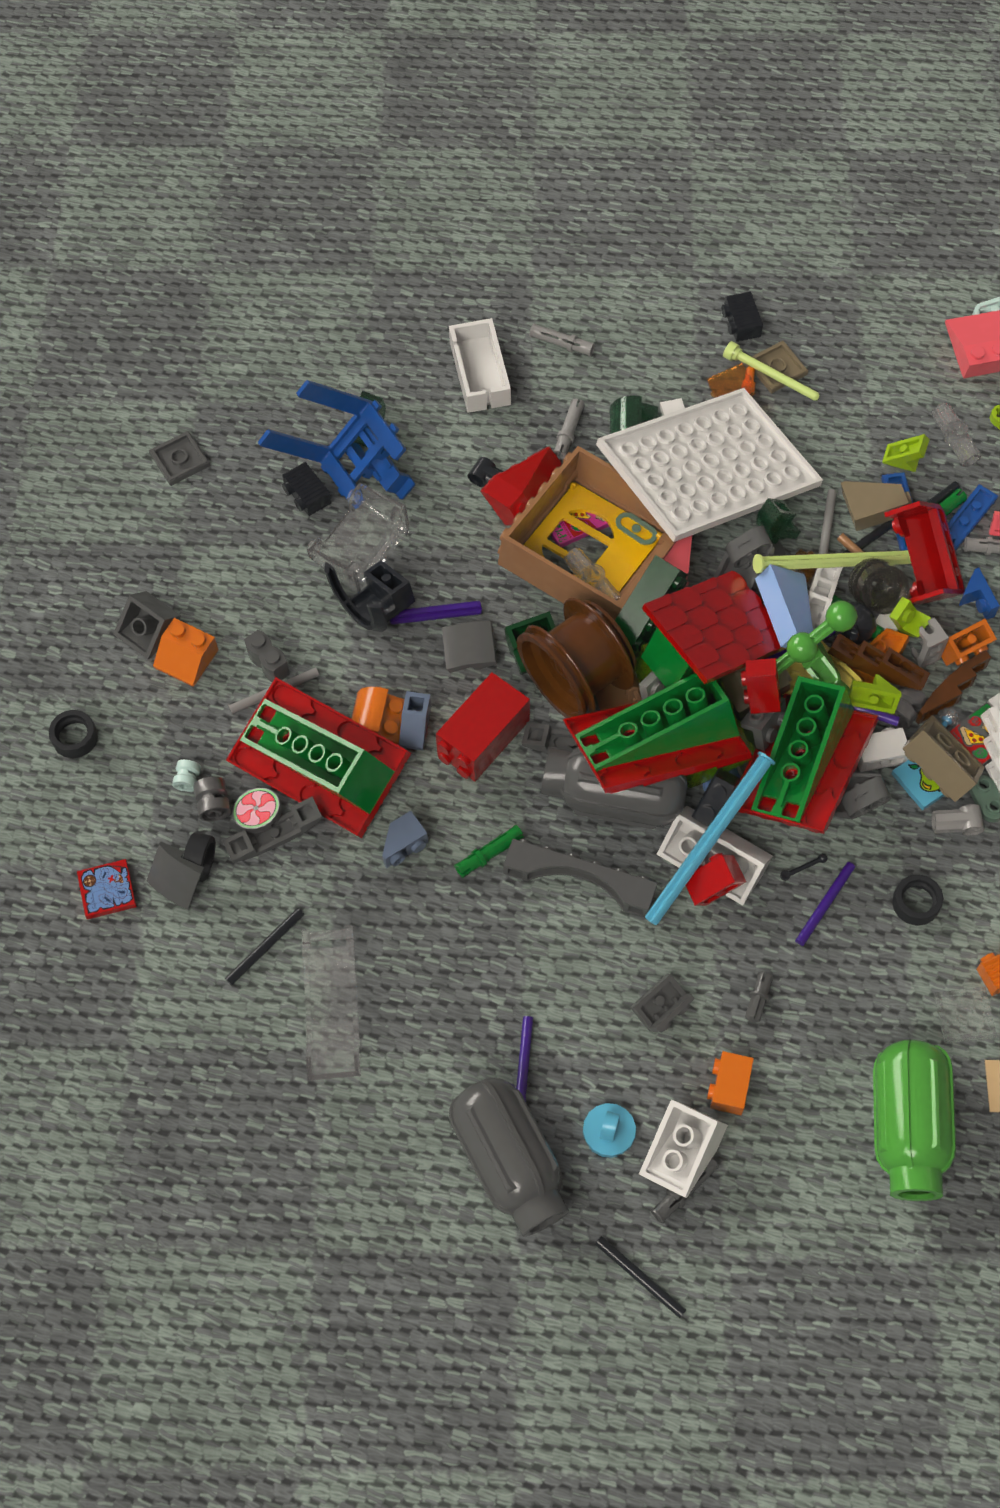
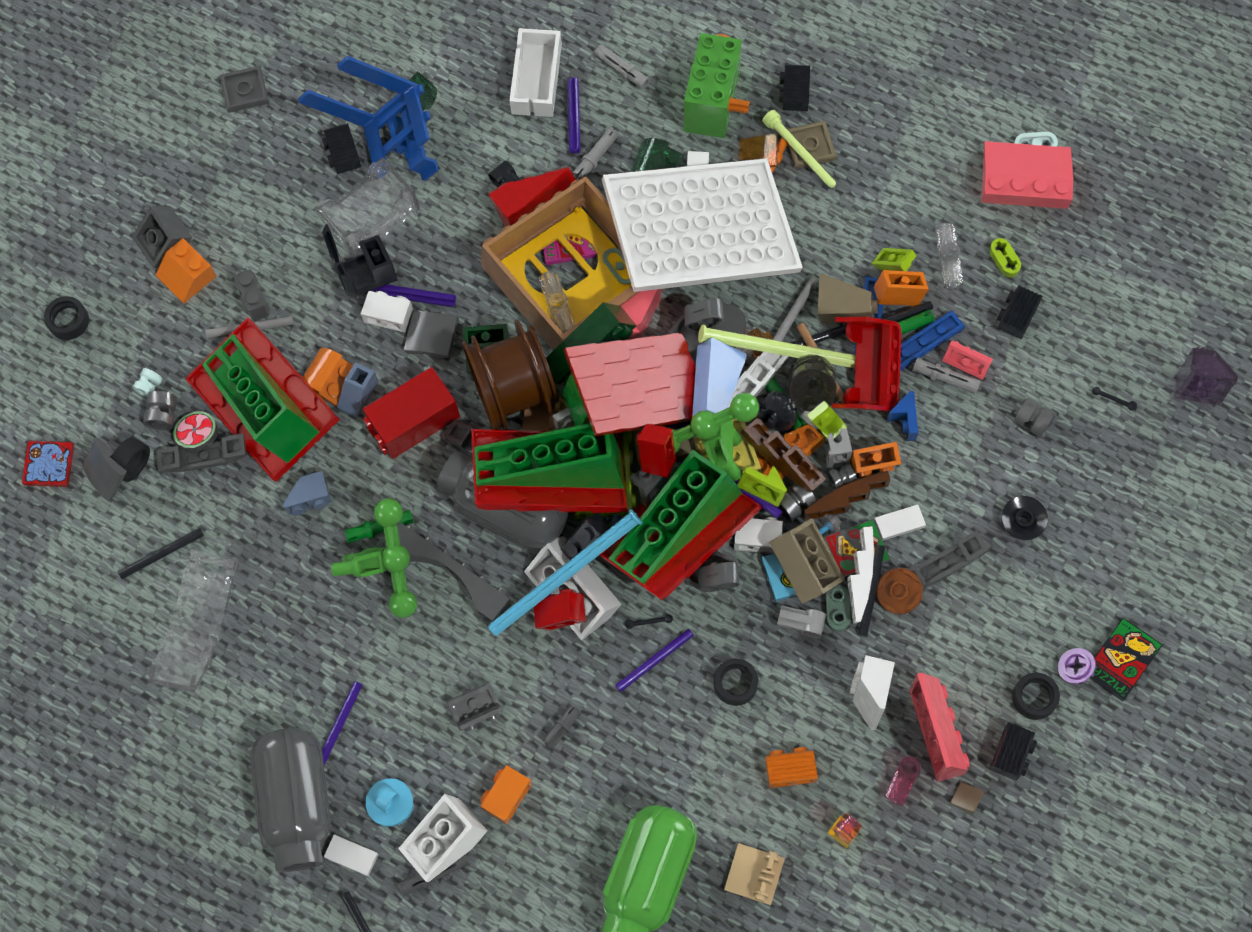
camera: 20 degrees right, 5 degrees up
(415, 635) = (387, 311): none -> white brick
(524, 875) = (377, 559): none -> bright green connector
(531, 398) = (573, 115): none -> dark purple axle
(590, 1197) = (351, 855): none -> white tile
(666, 332) = (713, 86): none -> bright green piece
(777, 520) = (745, 295): clear green brick -> none
(925, 474) = (900, 288): none -> orange brick
(941, 669) = (842, 476): none -> dark grey wheel

